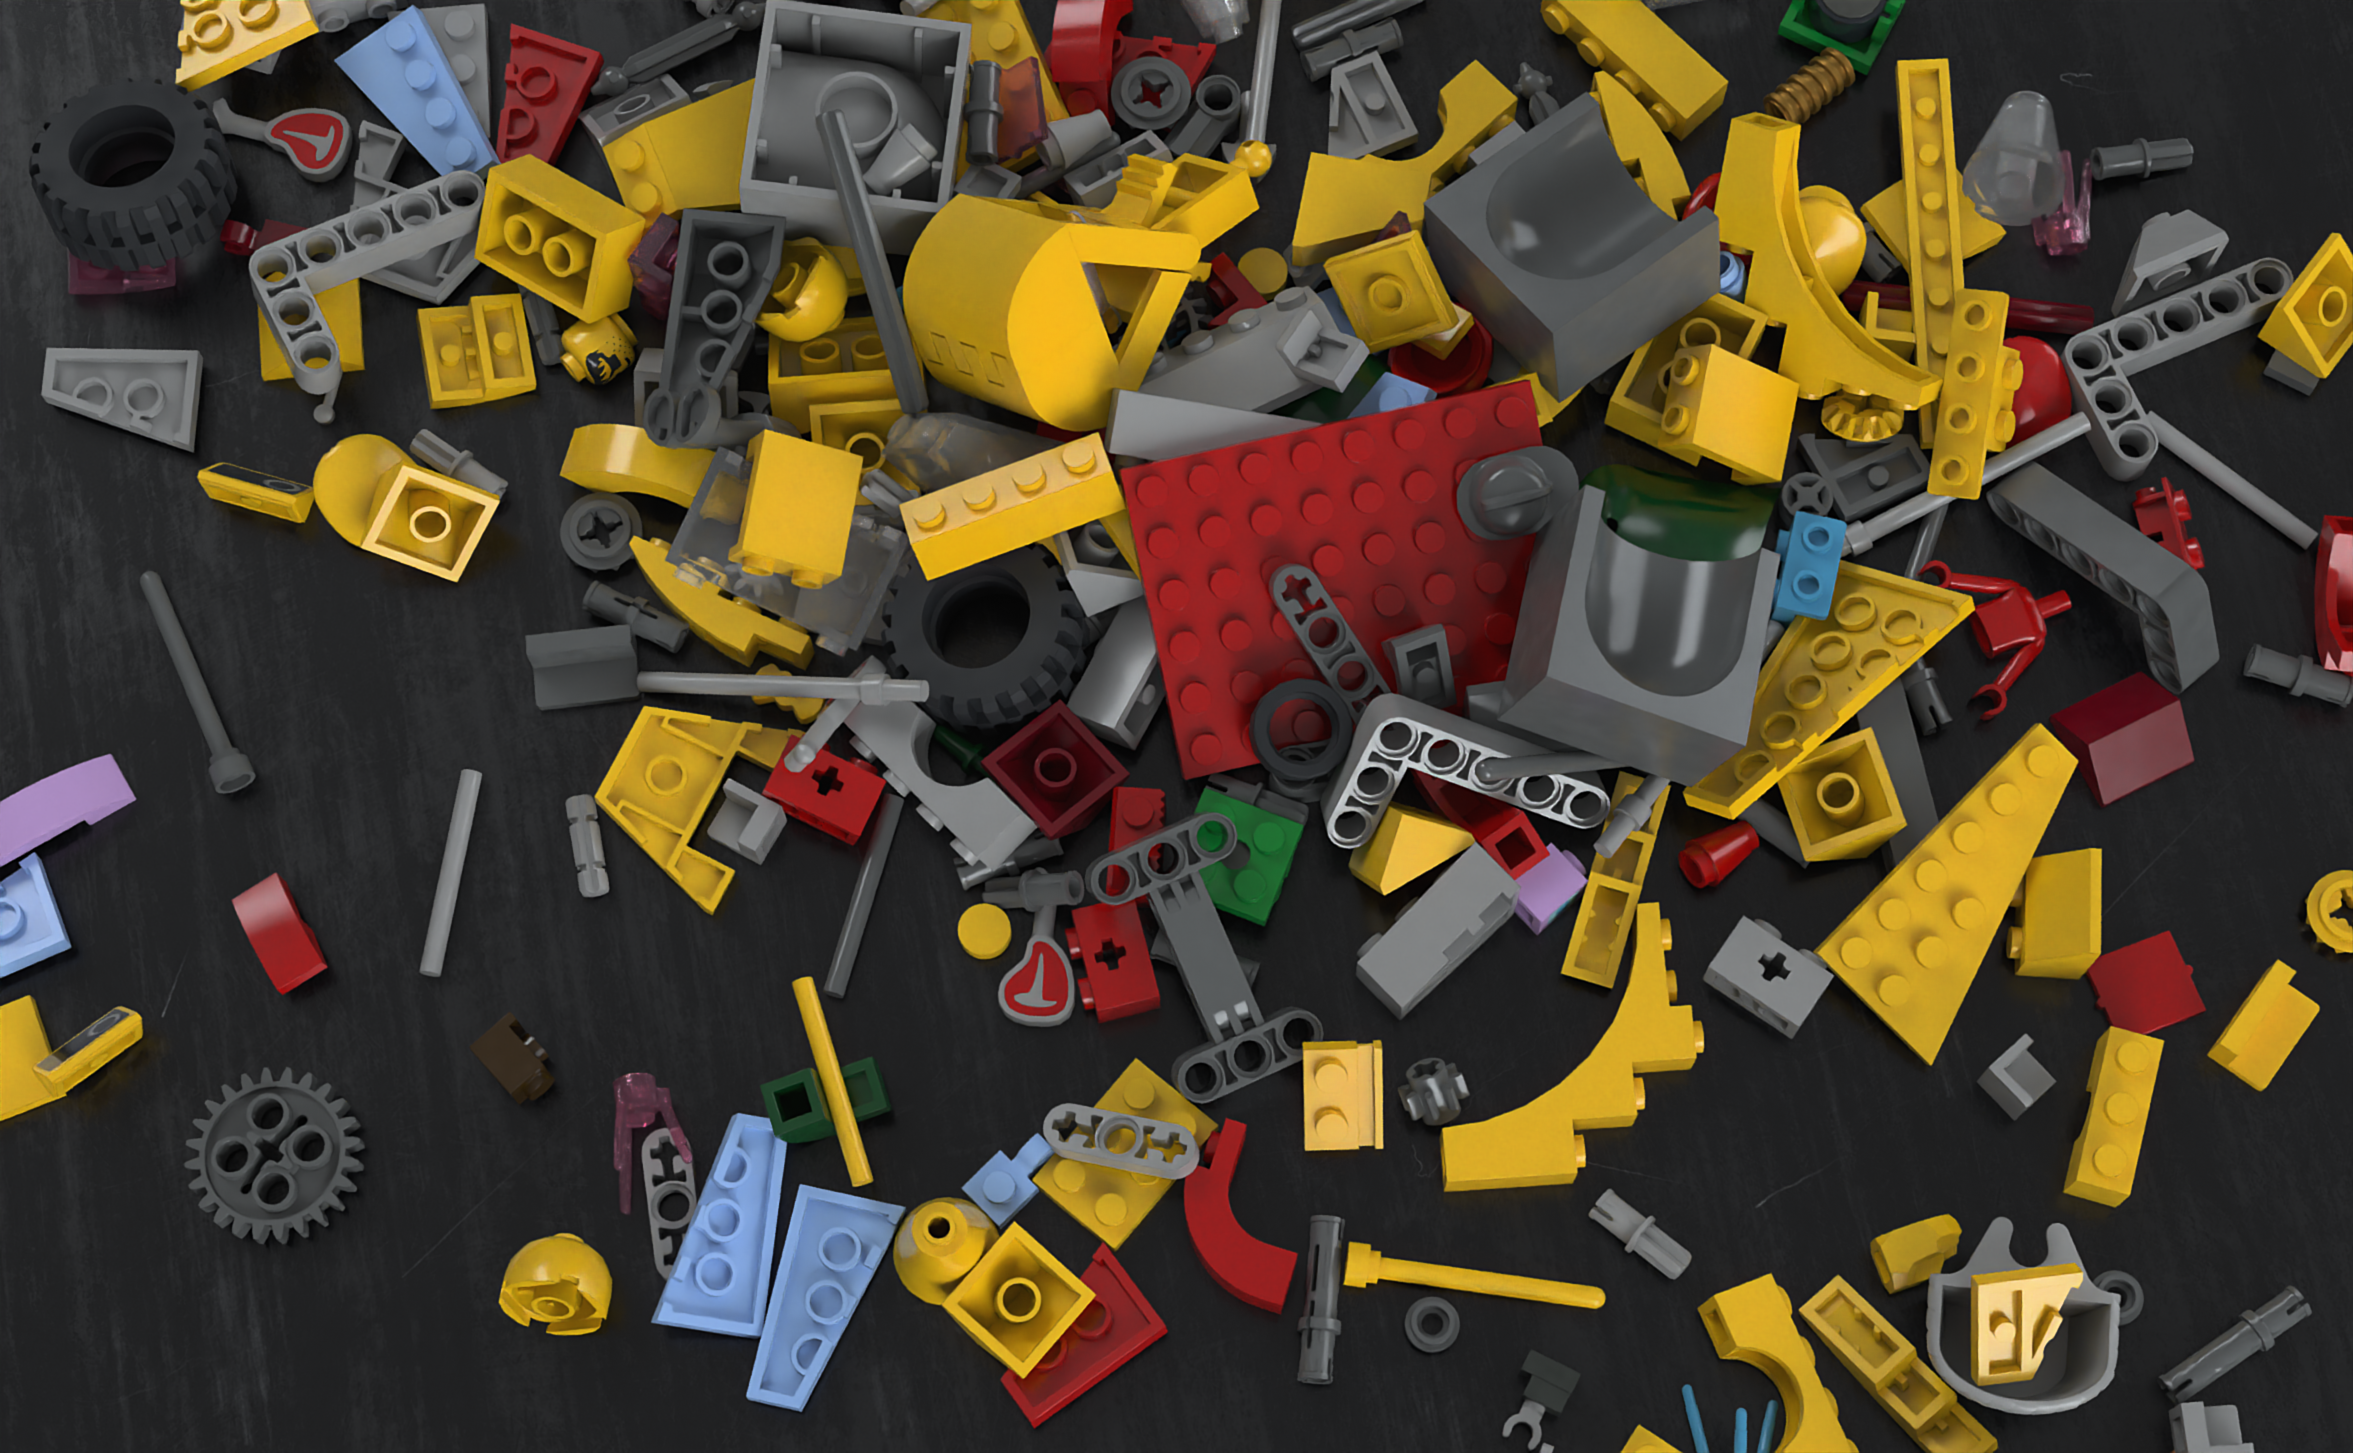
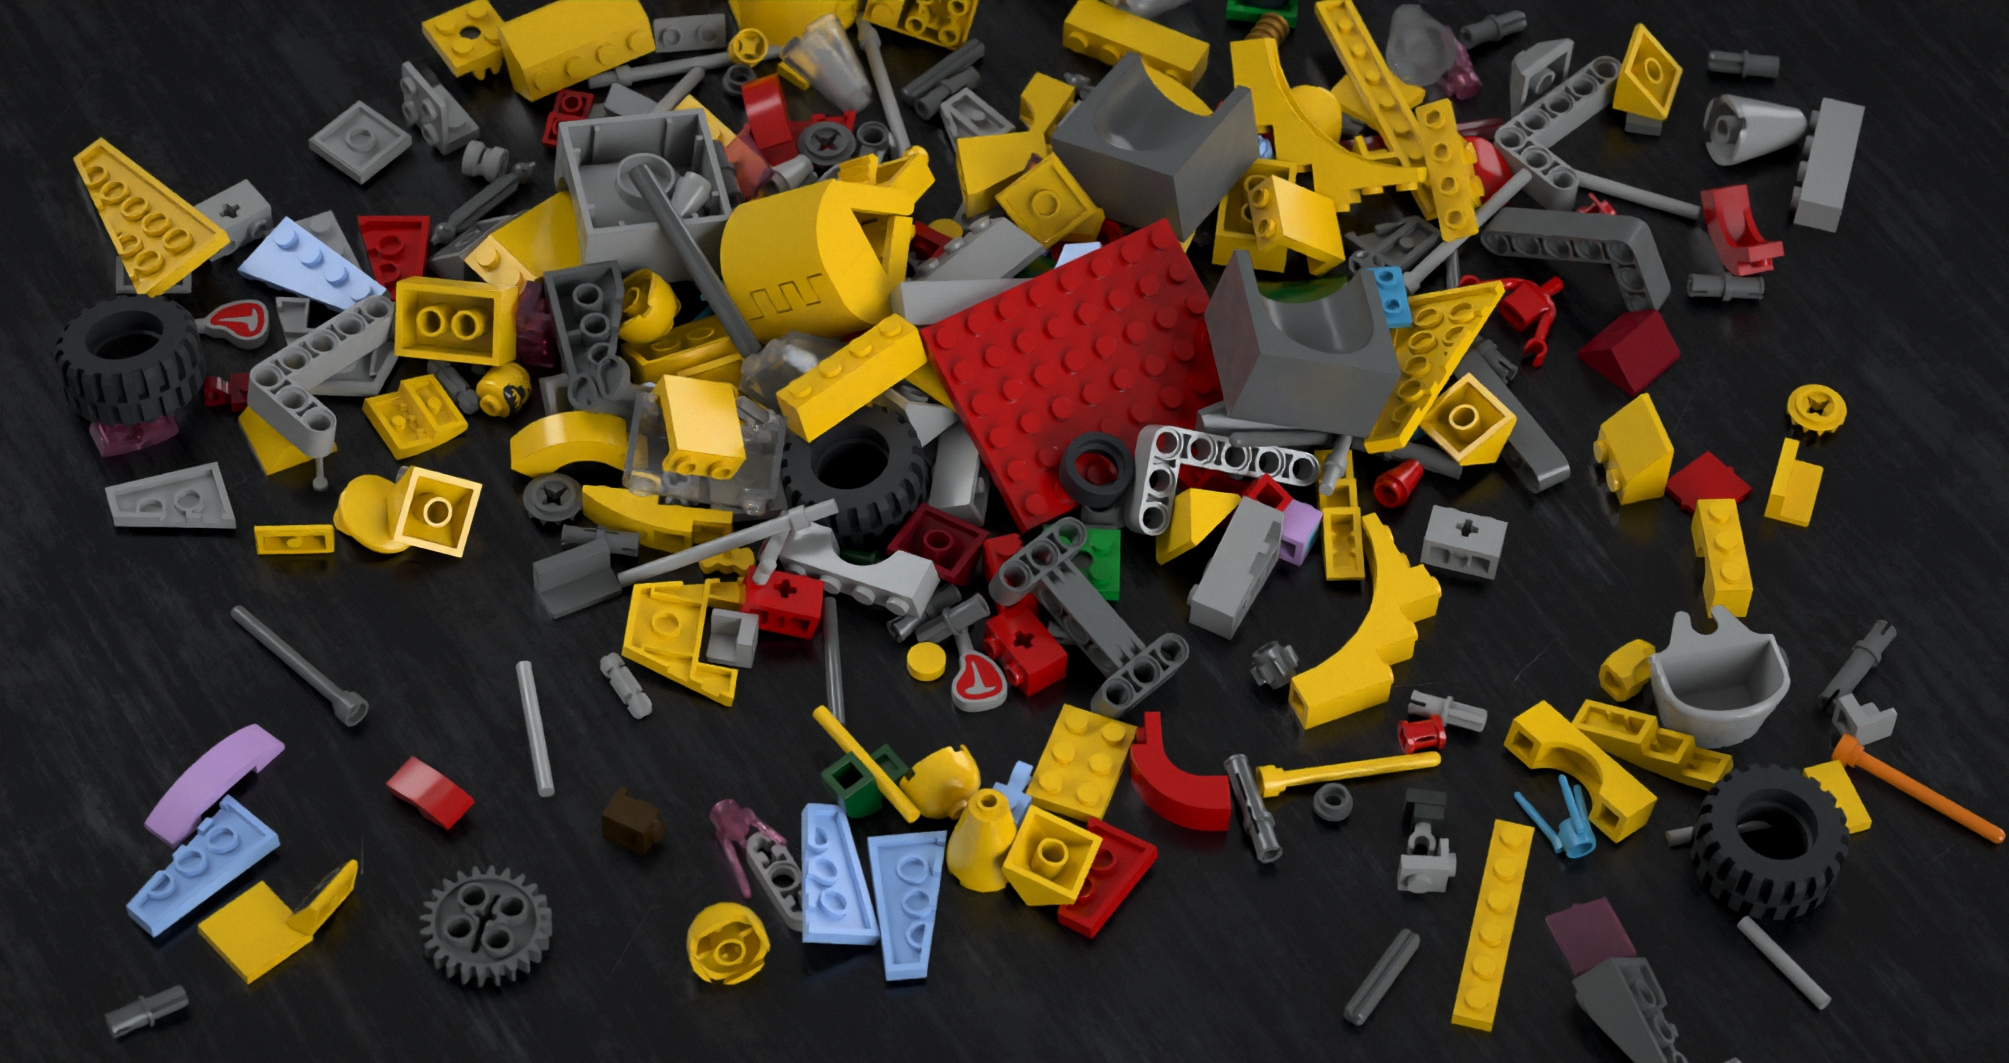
camera: 25 degrees left, 20 degrees down
(922, 1145) = (943, 783): none -> yellow cylinder
(1162, 1136) = (1092, 753): light grey beam -> none
(1320, 352) = (1020, 241): light grey bracket -> none
(1341, 650) = (1106, 408): dark grey beam -> none
(1342, 1095) = (1215, 681): yellow plate -> none
(1422, 666) = (1161, 403): dark grey slope -> none
(1515, 492) = (1181, 289): dark grey piece -> none
(1590, 1260) = (1421, 734): none -> red bush
(1861, 416) = (1380, 212): yellow gear -> none
(1935, 914) = (1557, 471): yellow wing -> none
(2015, 1318) = (1714, 664): yellow wing -> none
(2016, 1079) = (1648, 558): light grey panel -> none

